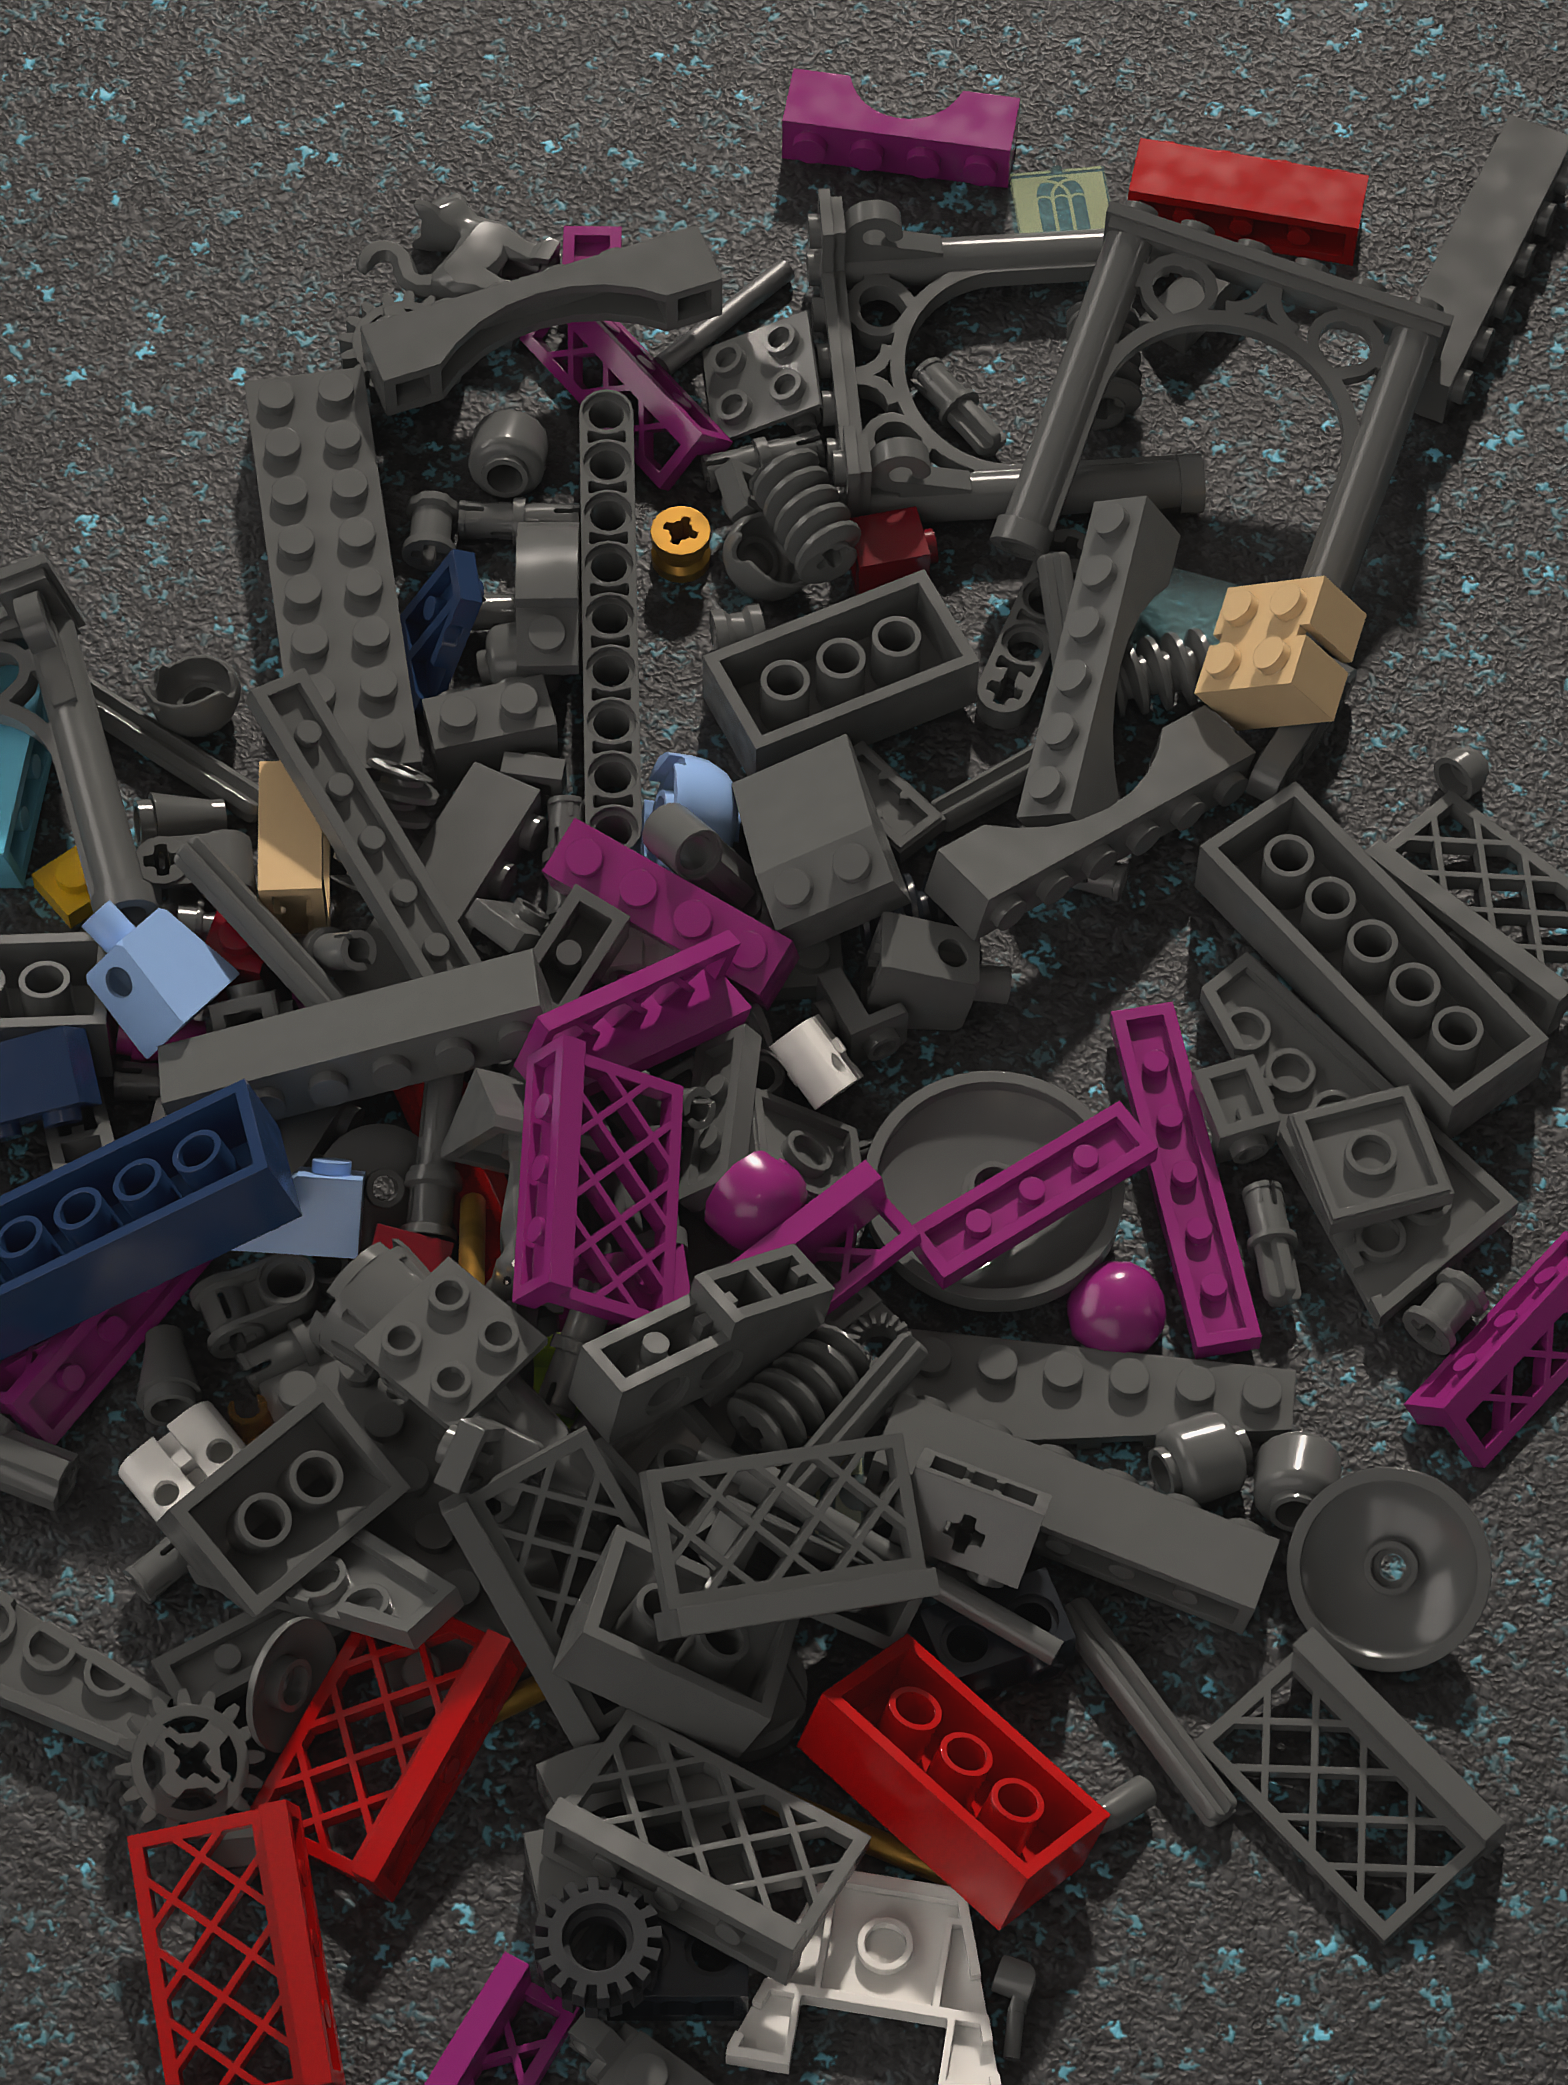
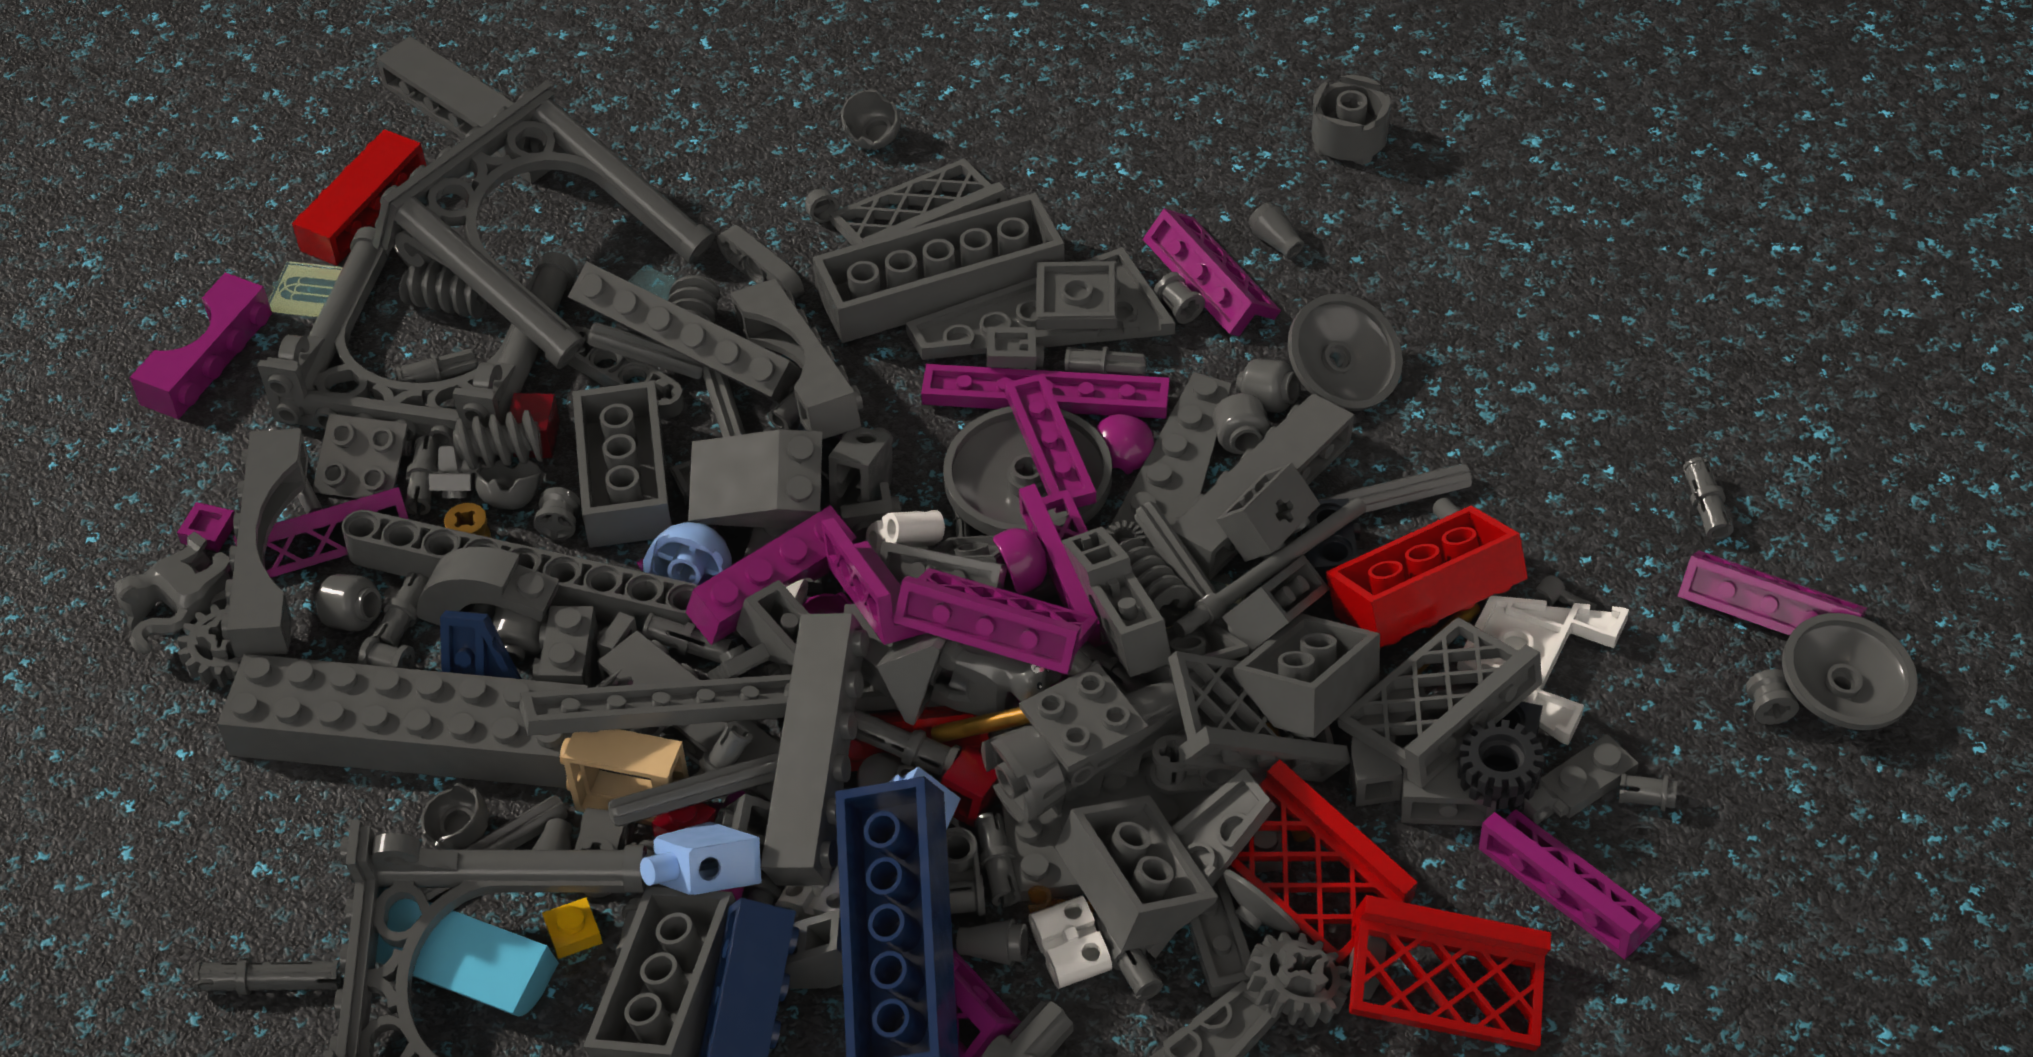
camera: 70 degrees left, 10 degrees down
(480, 1451) = (1168, 720): dark grey bracket -> none
(698, 854) = (733, 542): dark grey piece -> none
(794, 1596) = (1311, 582): dark grey fence -> none
(1265, 662) = (722, 241): tan piece -> none
(1393, 1745) = (1458, 380): dark grey fence -> none

